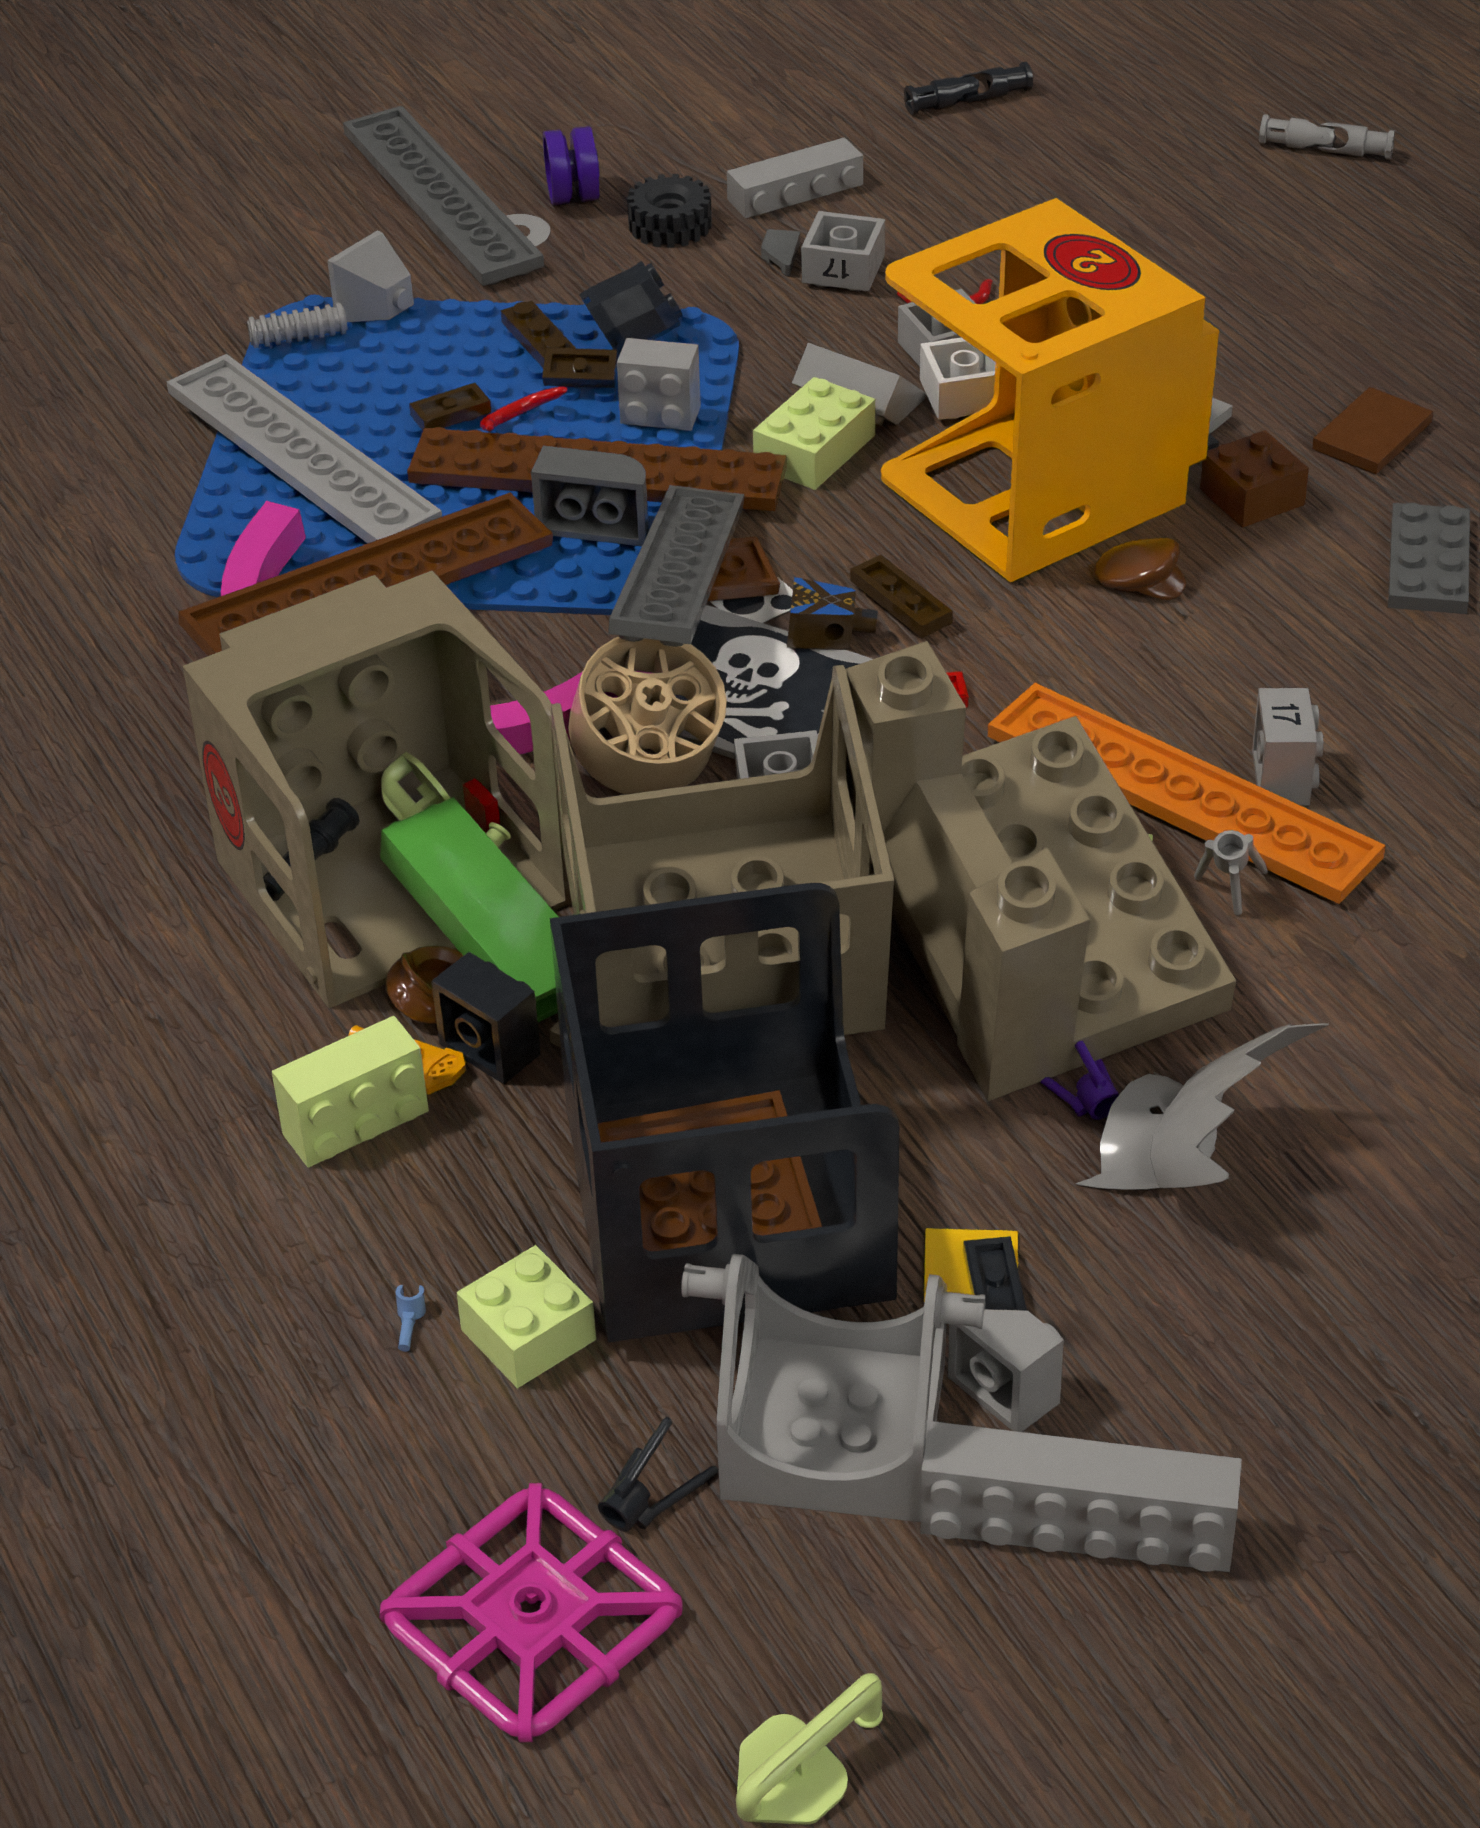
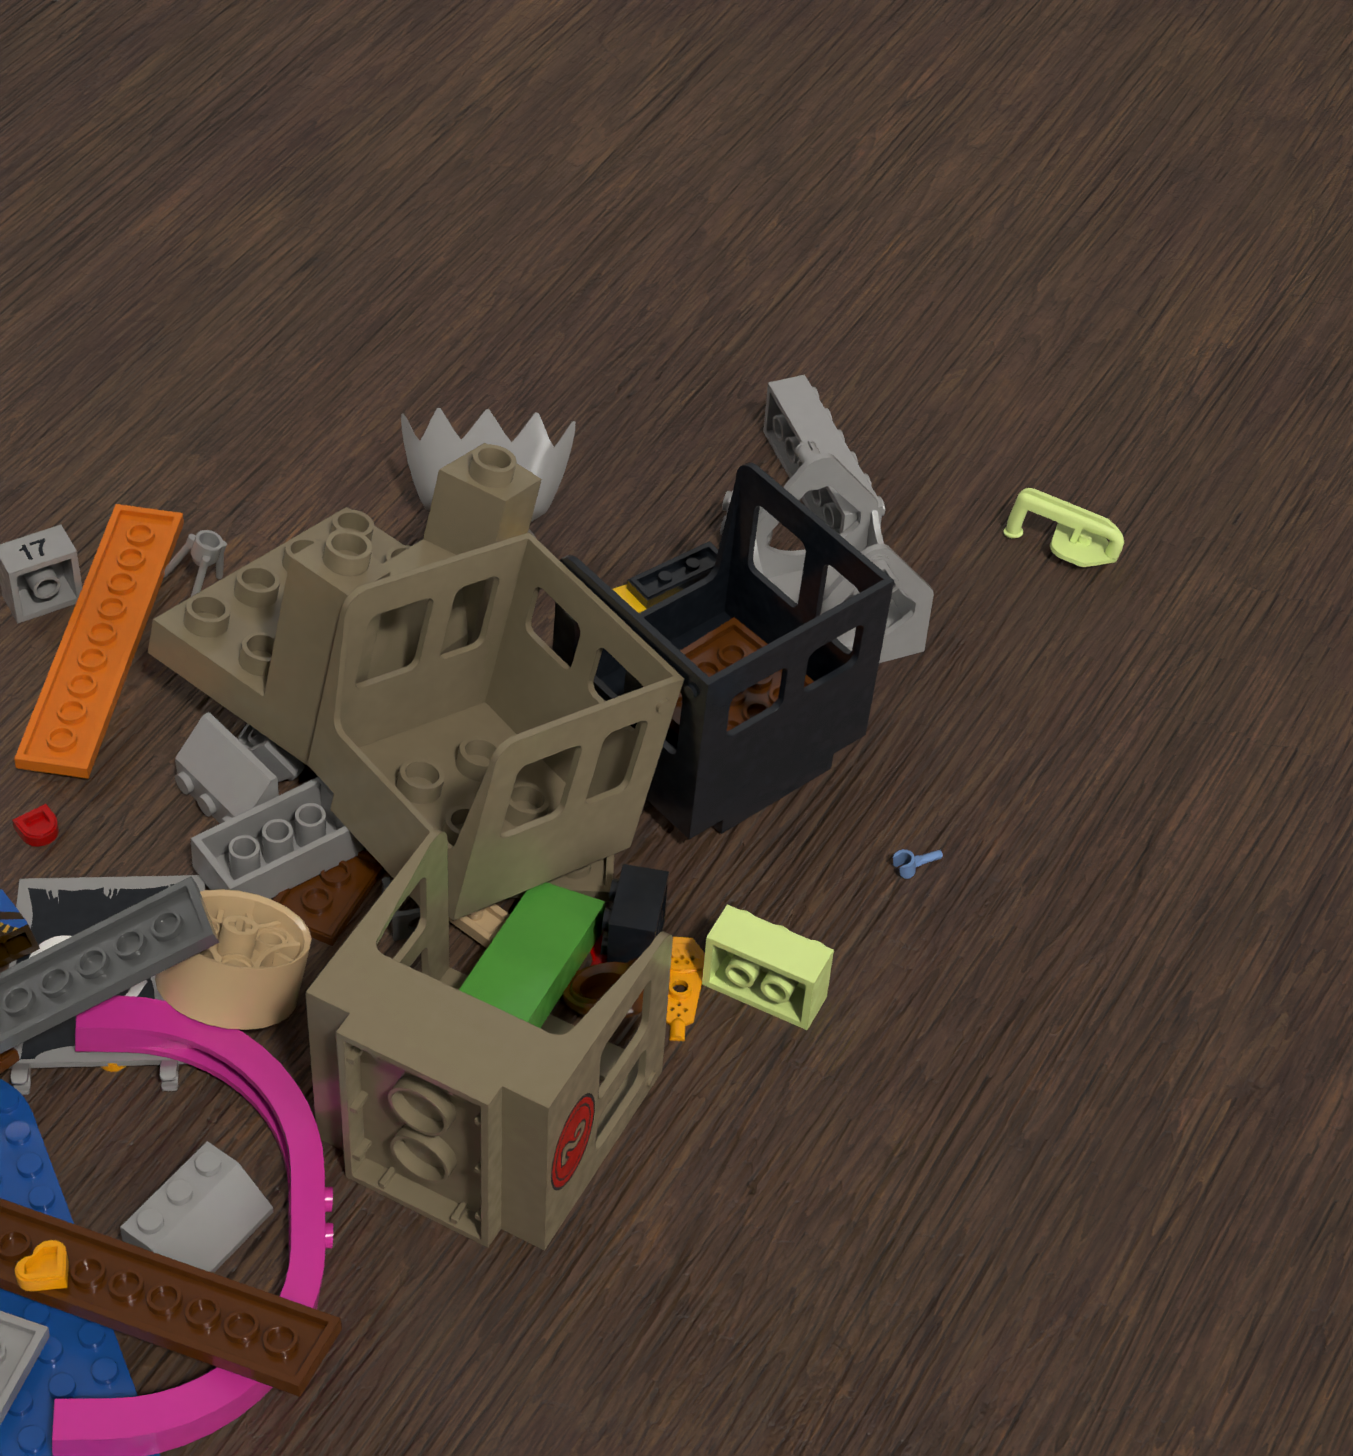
camera: 125 degrees left, 5 degrees up
(419, 534) = (44, 1268): none -> light orange tile
(526, 1316) = (877, 784): yellowish green brick -> none
(533, 1637) = (1087, 708): dark pink plate -> none
(628, 1498) = (970, 675): black plant -> none

